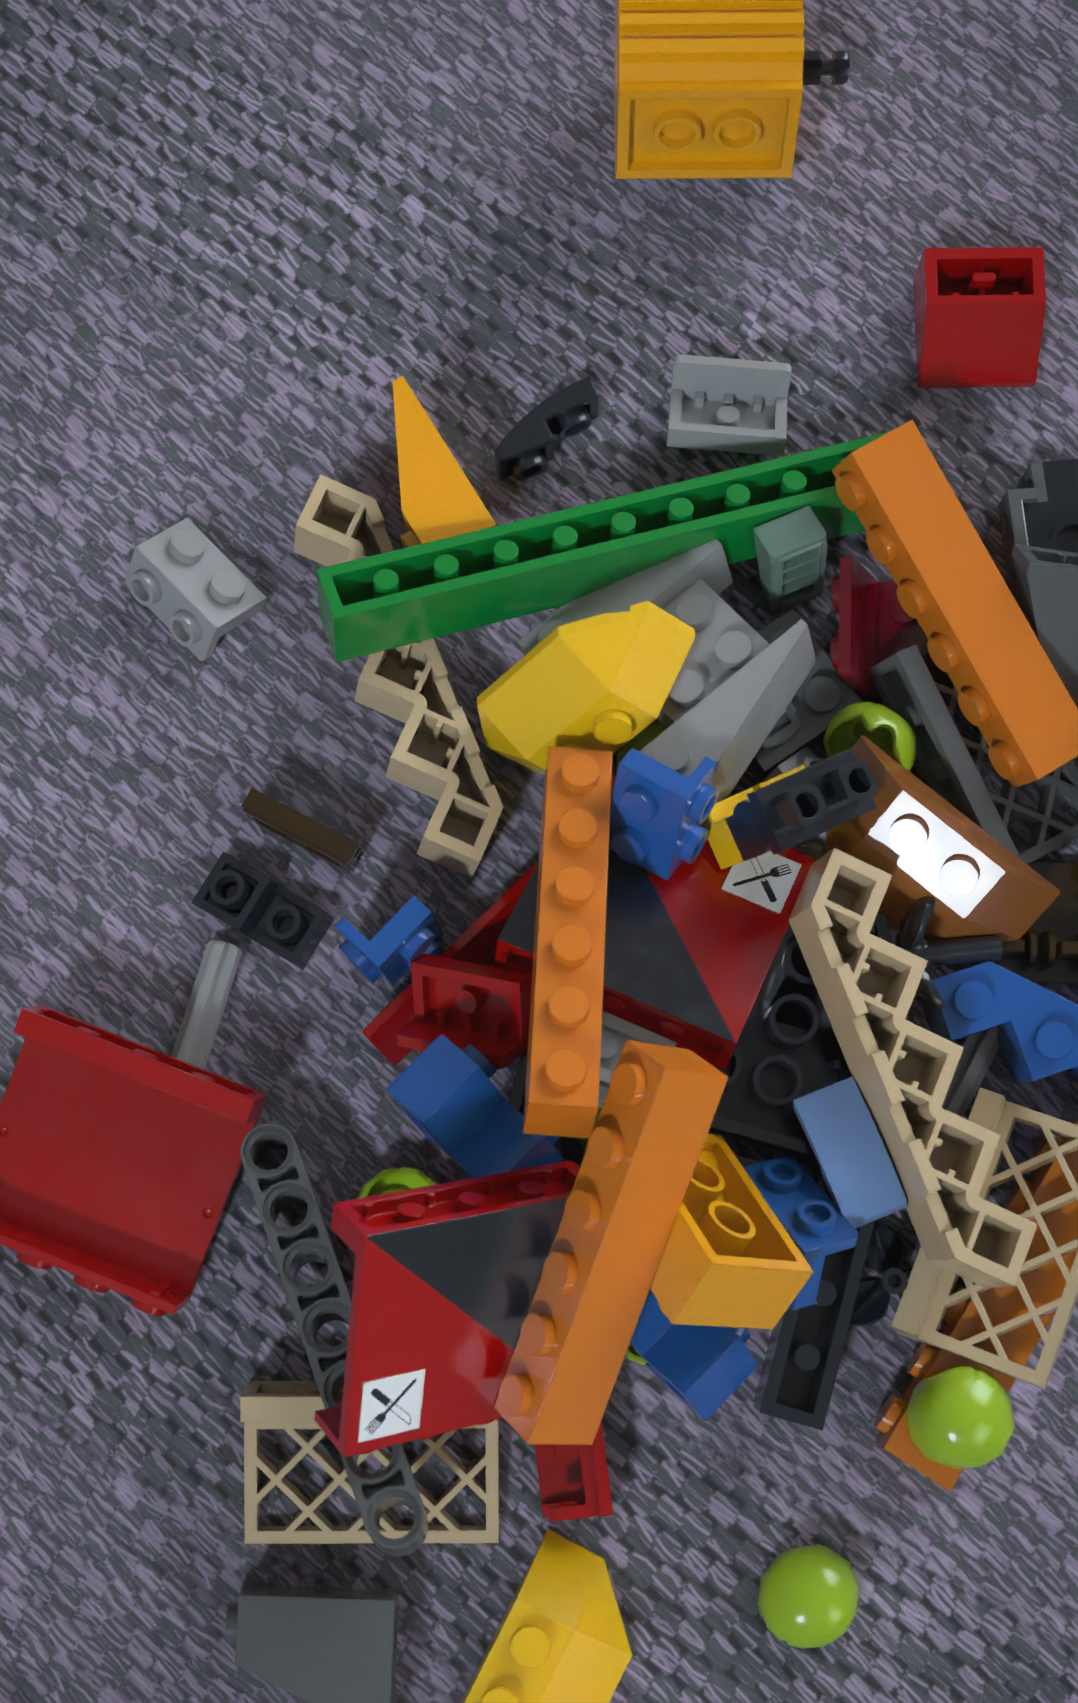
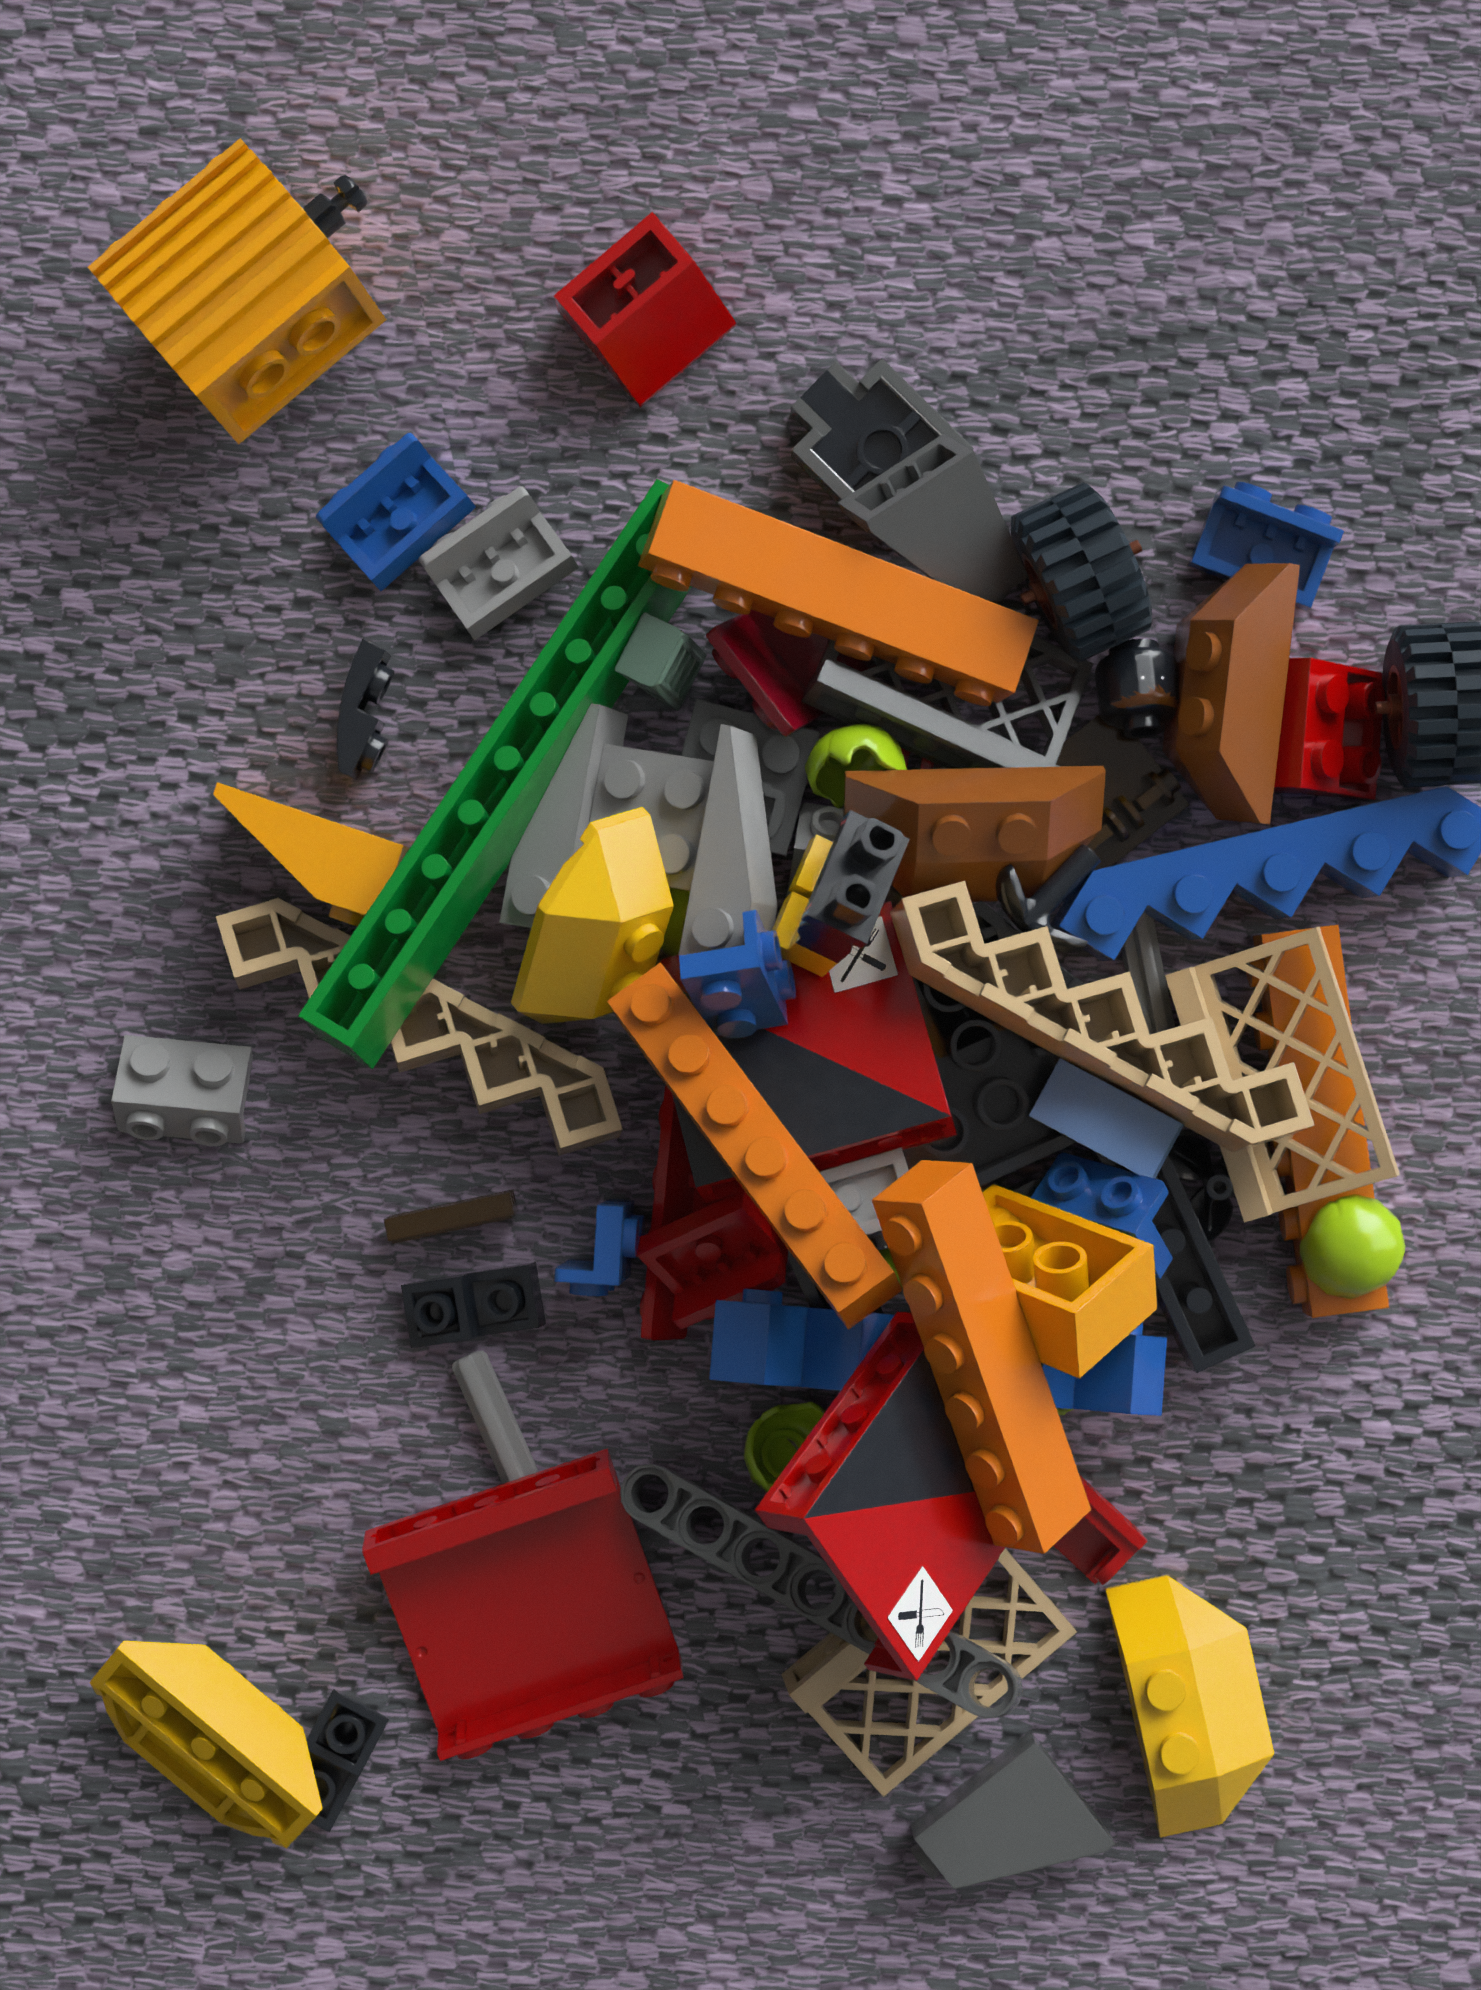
camera: 45 degrees left, 10 degrees up
(685, 313) = (394, 511): none -> blue bracket
(808, 1596) = (1345, 1471): lime hair -> none

